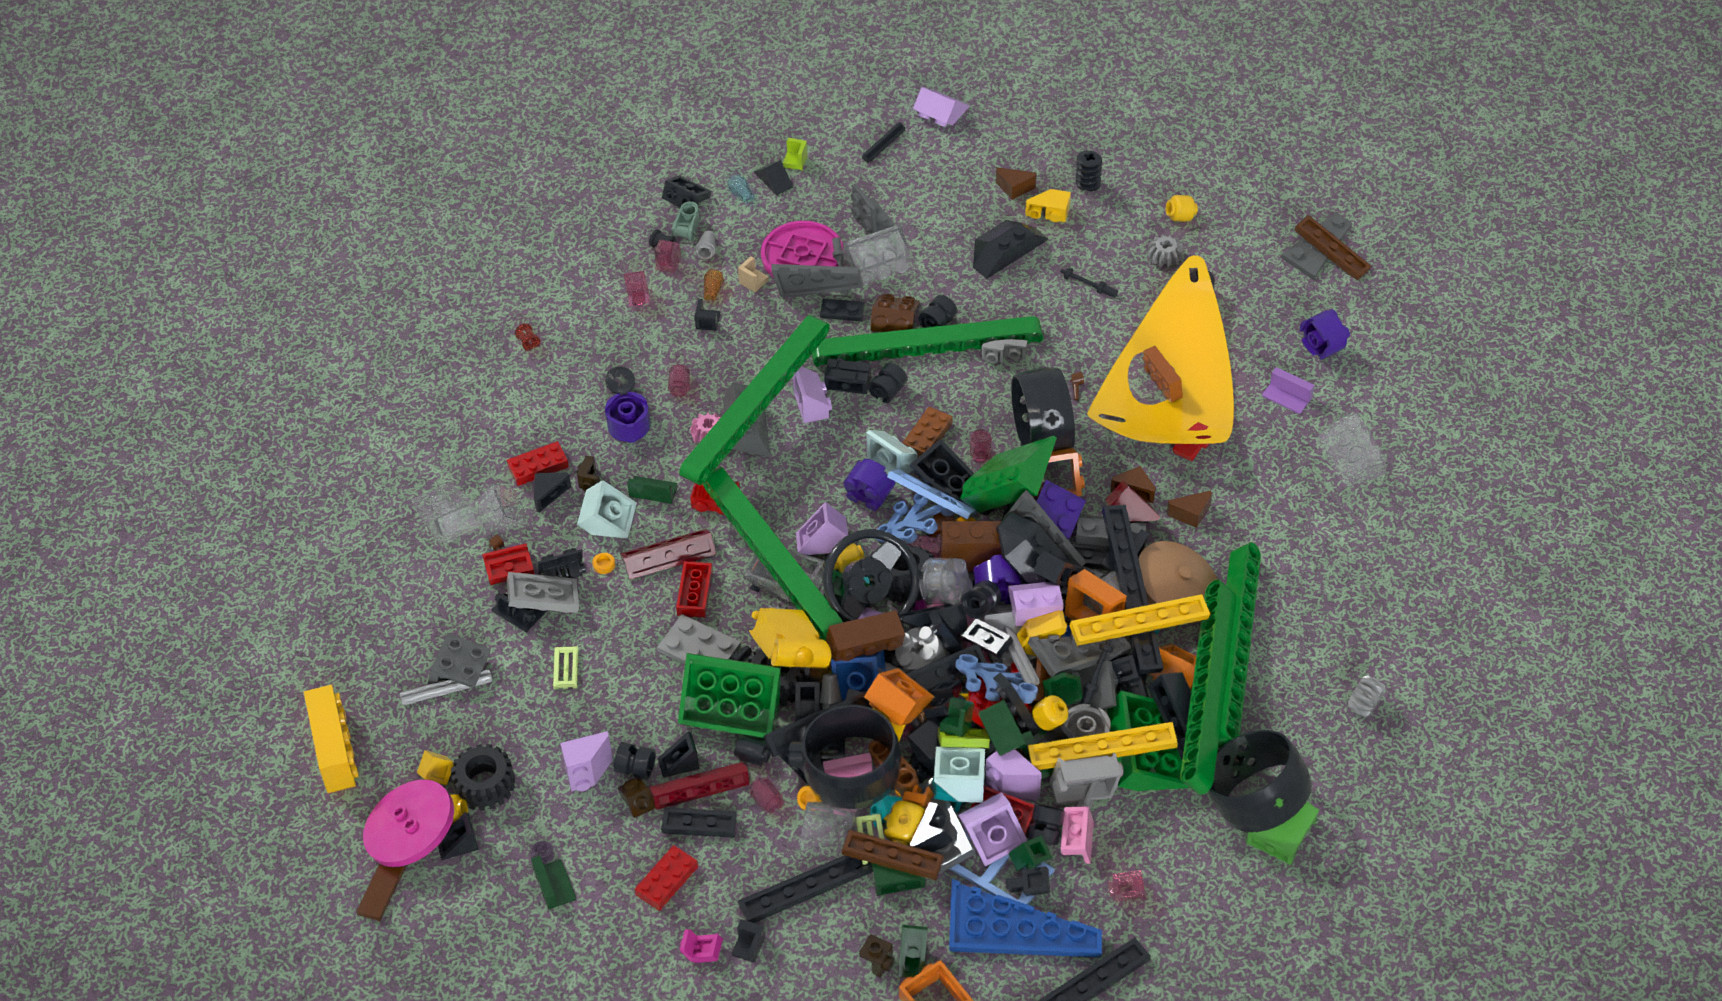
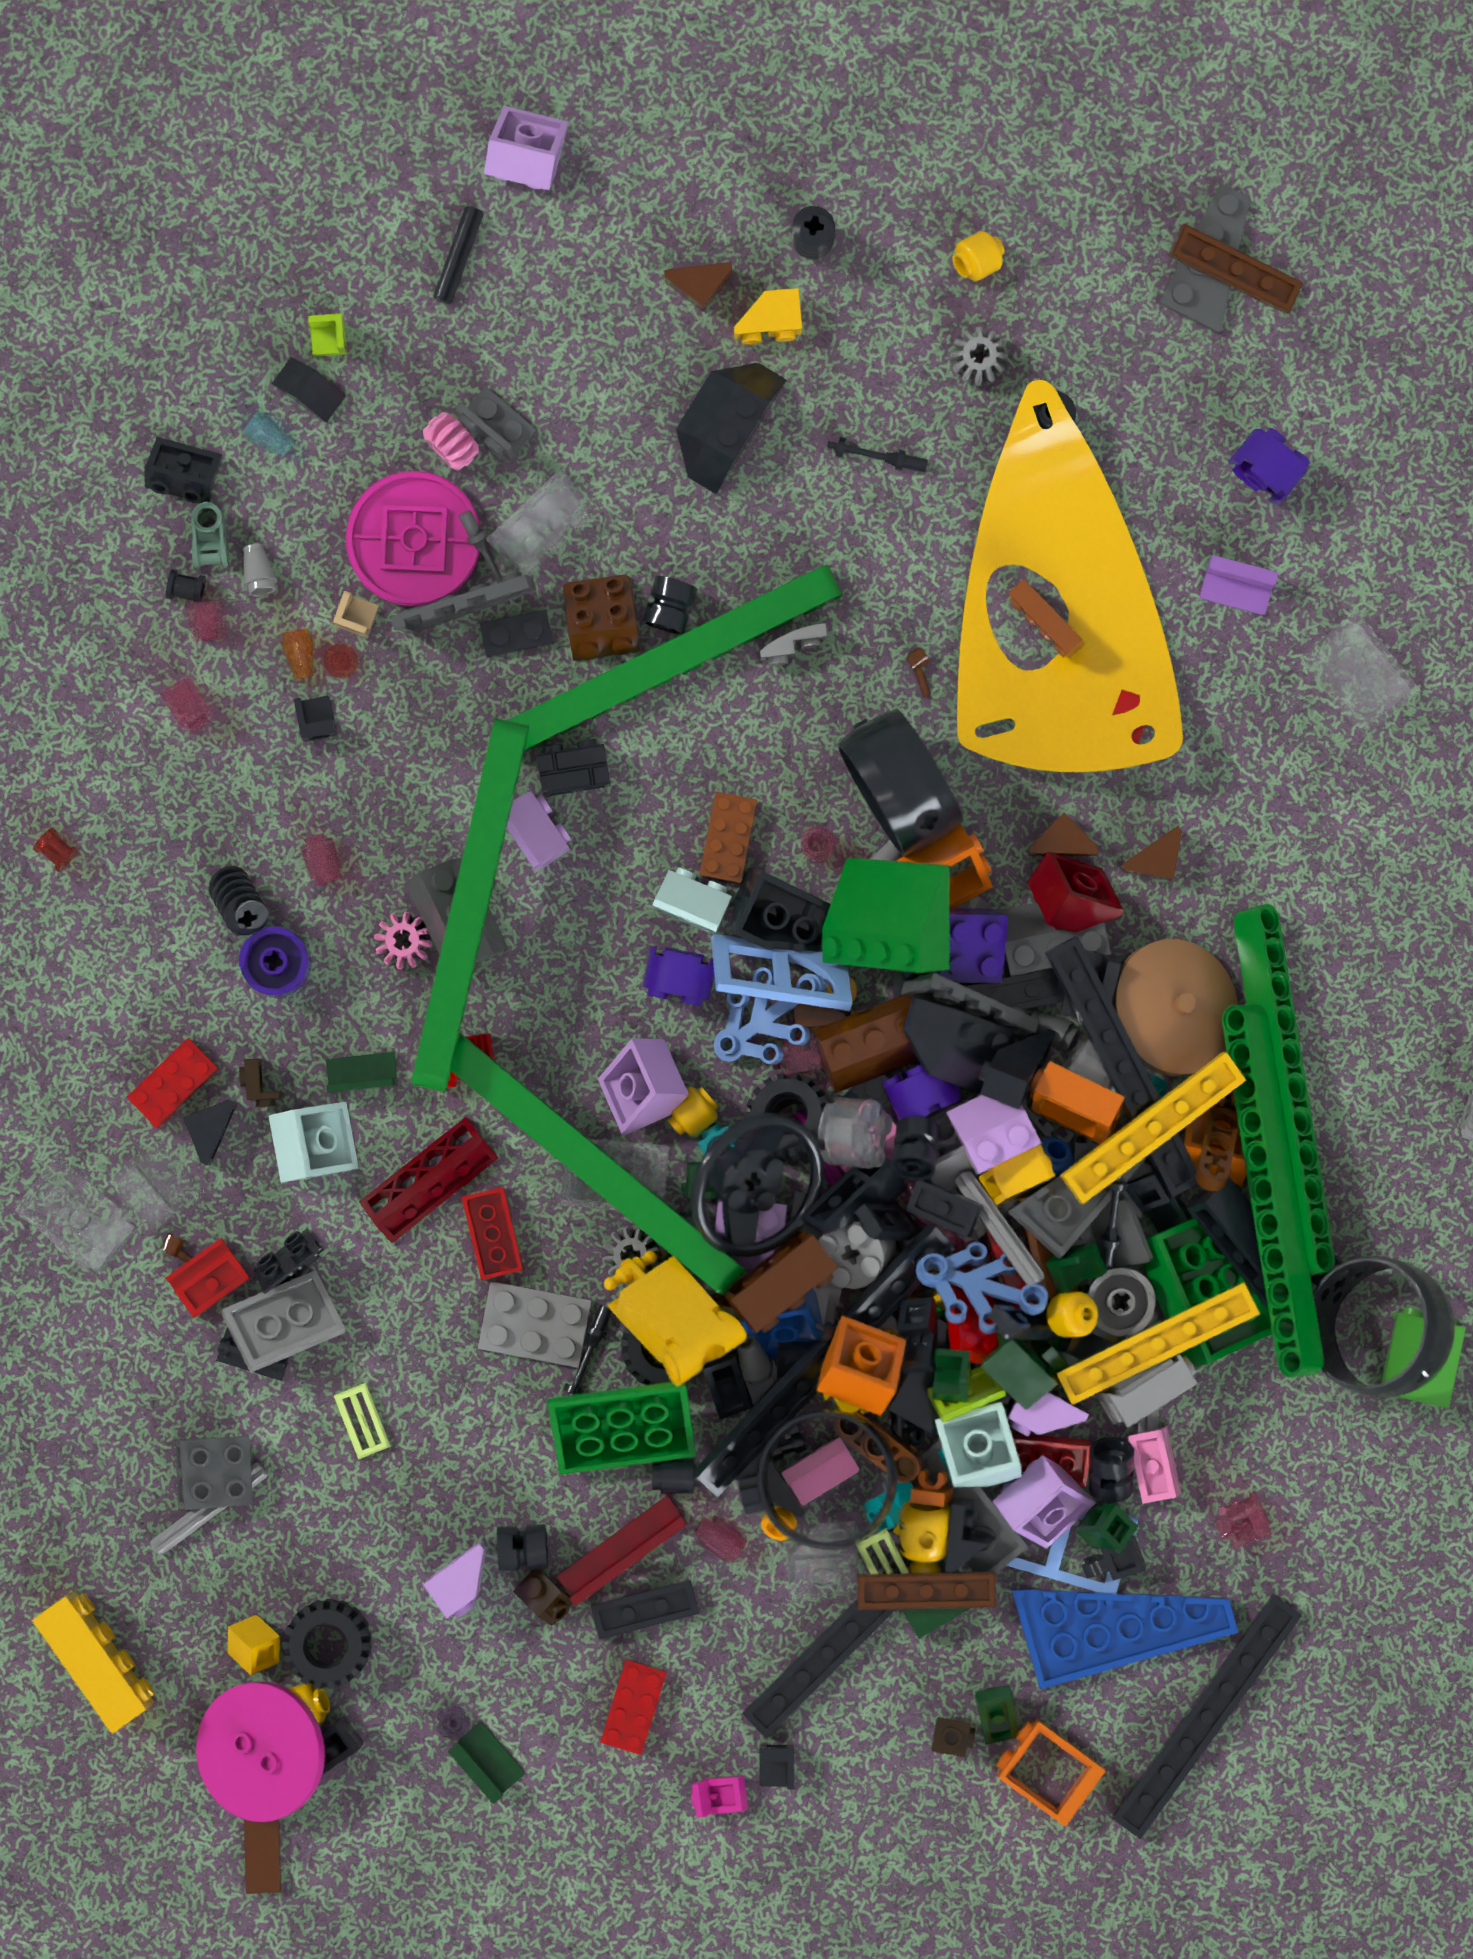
camera: 20 degrees left, 35 degrees up
(603, 563) = (342, 1226): light orange tile -> none
(679, 757) = (579, 1521): black slope -> none
(734, 297) = (341, 661): none -> clear red tile
(843, 211) = (451, 441): none -> bright pink gear
(888, 382) = (639, 766): black wheel -> none
(1180, 651) = (1216, 1135): none -> reddish brown beam

